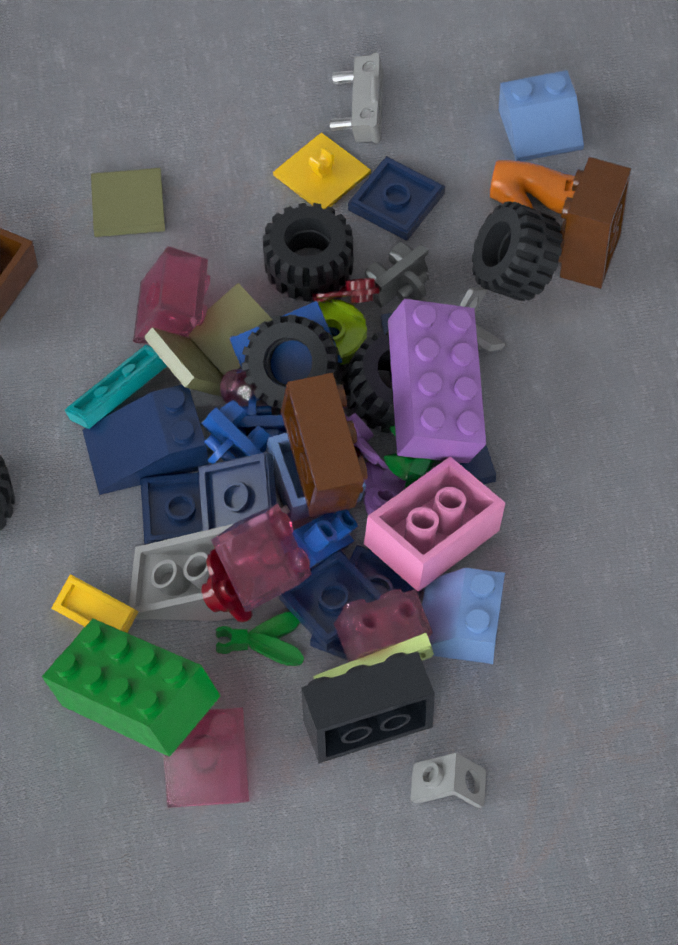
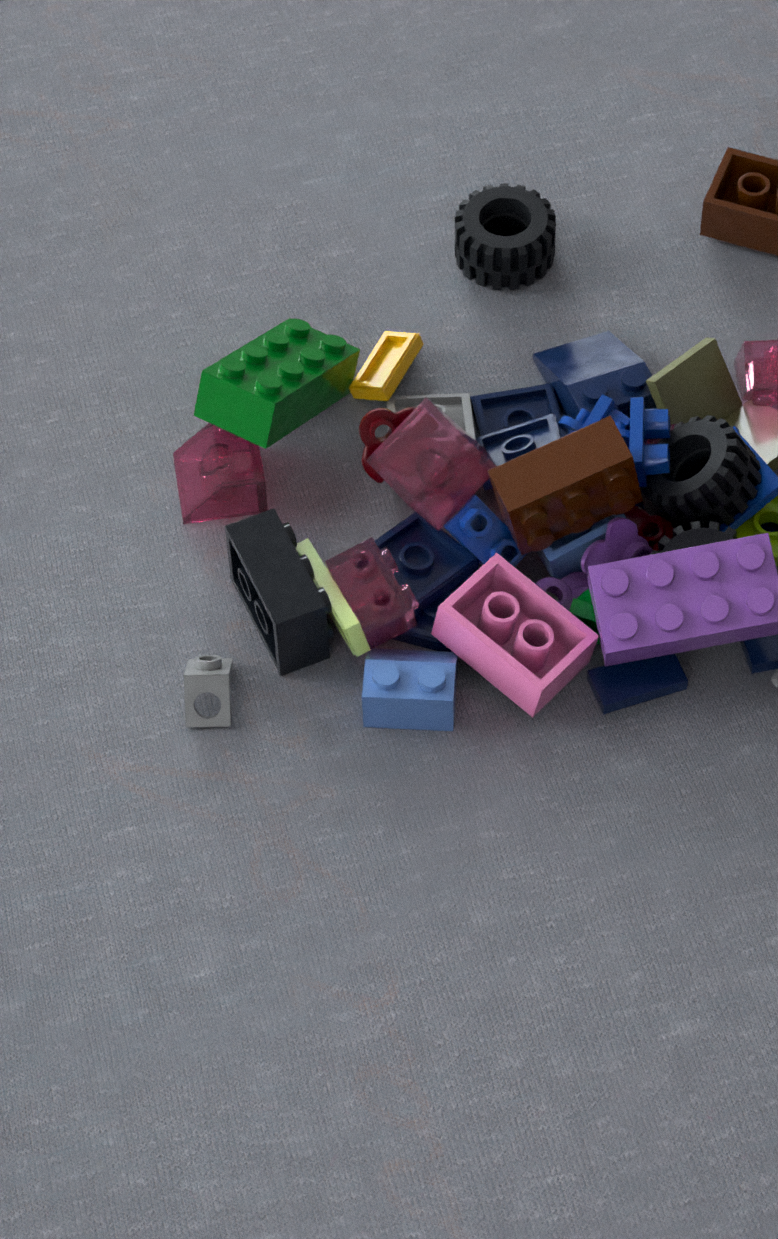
camera: 85 degrees right, 5 degrees down
(115, 387) = (645, 337): teal tile -> none
(259, 397) = (645, 425): none -> blue hips
(264, 639) = (365, 513): green piece -> none

